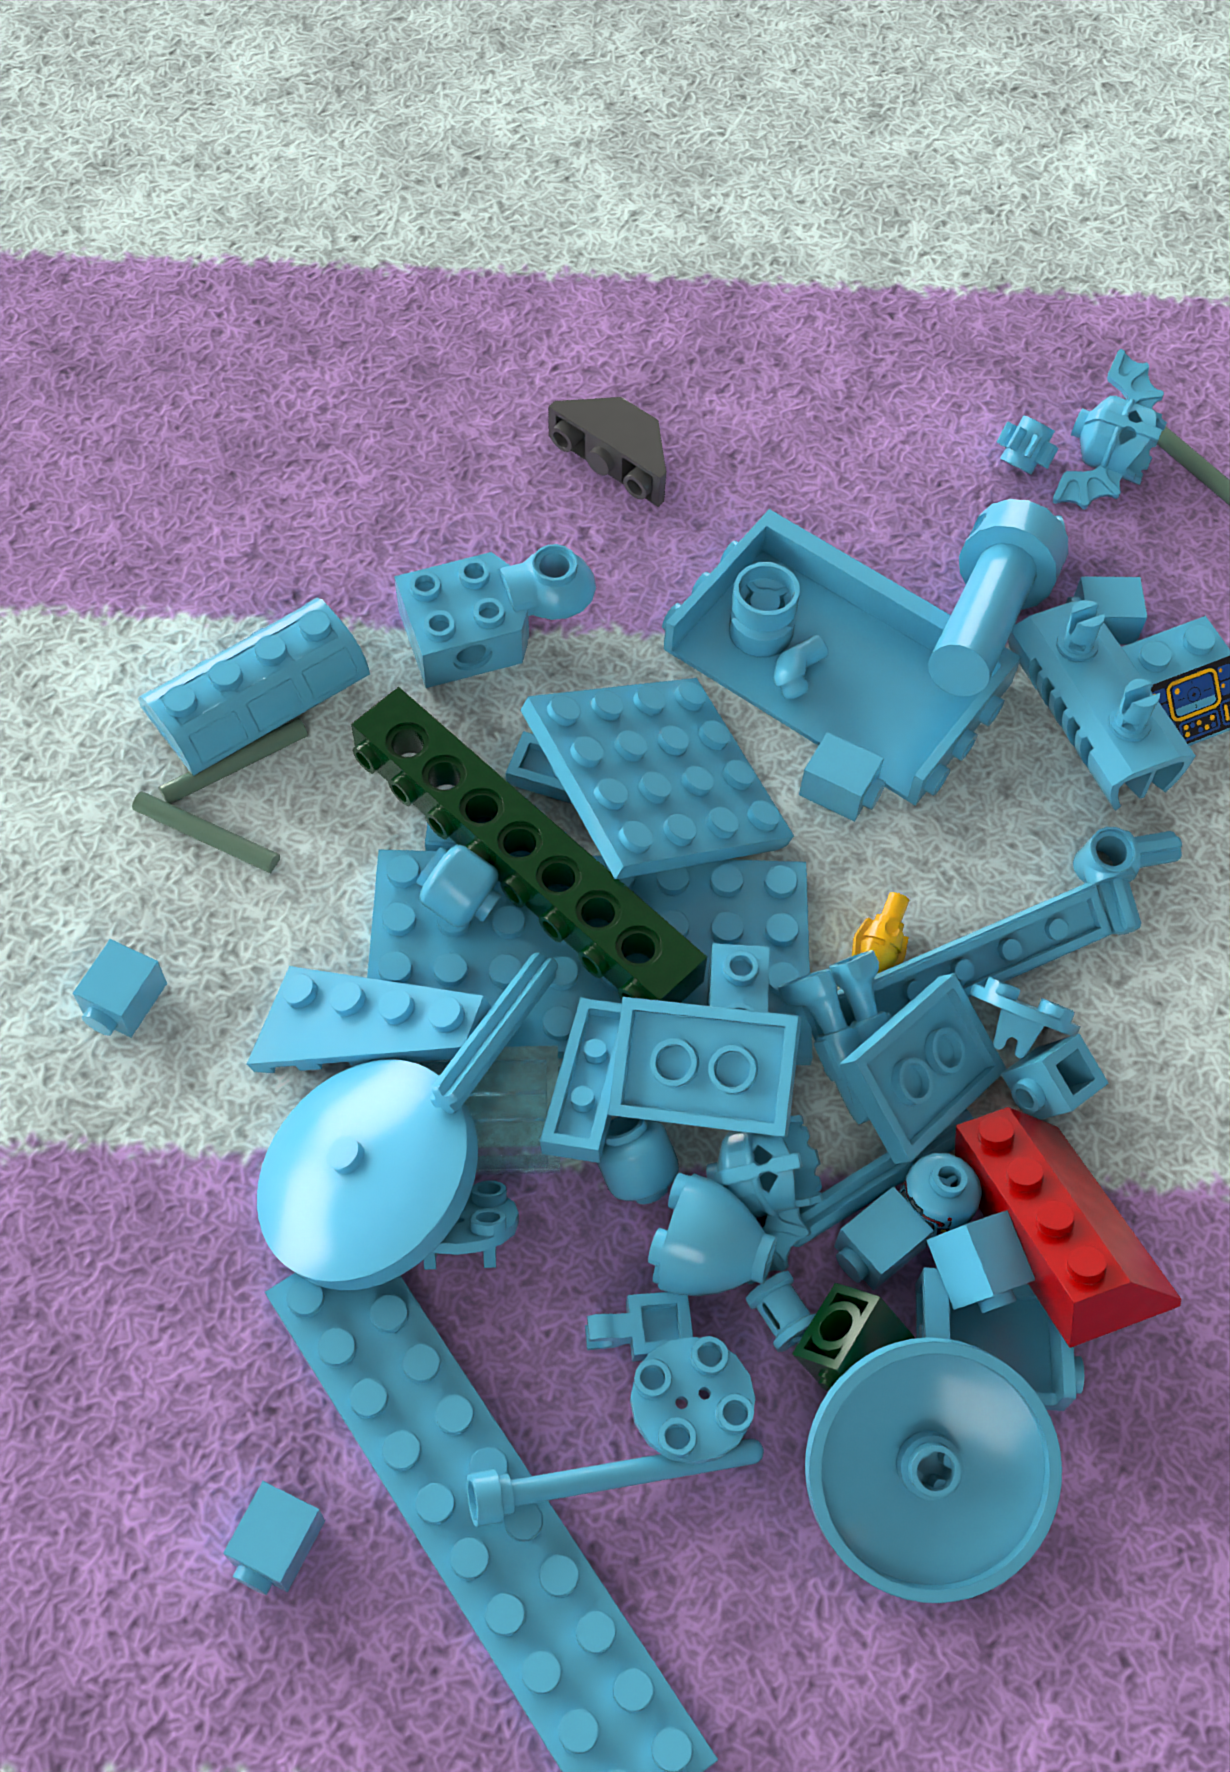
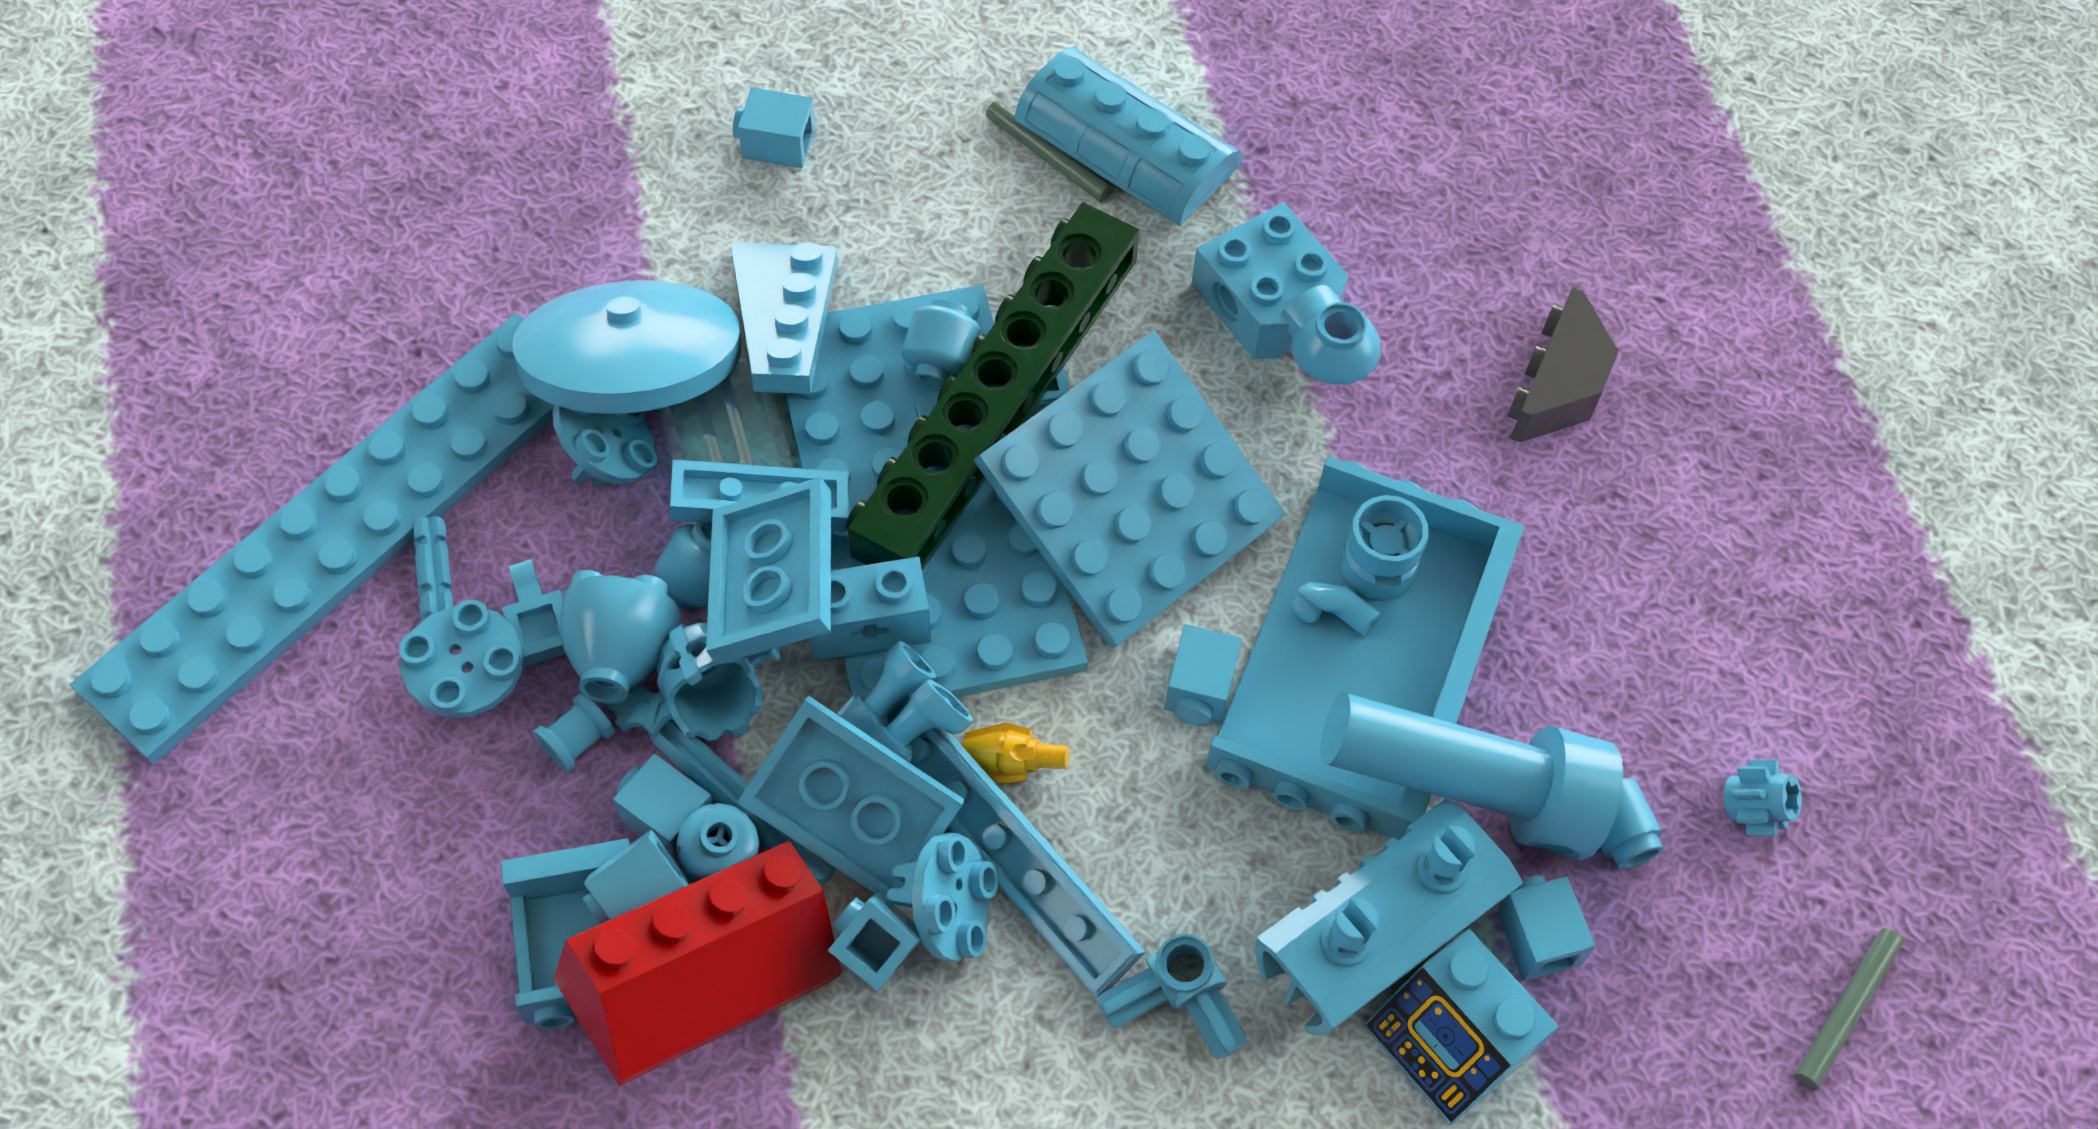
camera: 75 degrees right, 0 degrees up
(205, 832) = (964, 151): sand green bar -> none
(273, 1539) = (297, 373): medium azure brick -> none
(493, 1033) = (780, 398): medium azure axle -> none
(497, 1495) = (344, 515): medium azure piece -> none
(560, 1426) = (432, 565): none -> medium azure axle
(845, 1331) = (539, 792): dark green head -> none
(933, 1470) = (421, 881): medium azure dish -> none
(1115, 436) = (1820, 898): medium azure helmet -> none

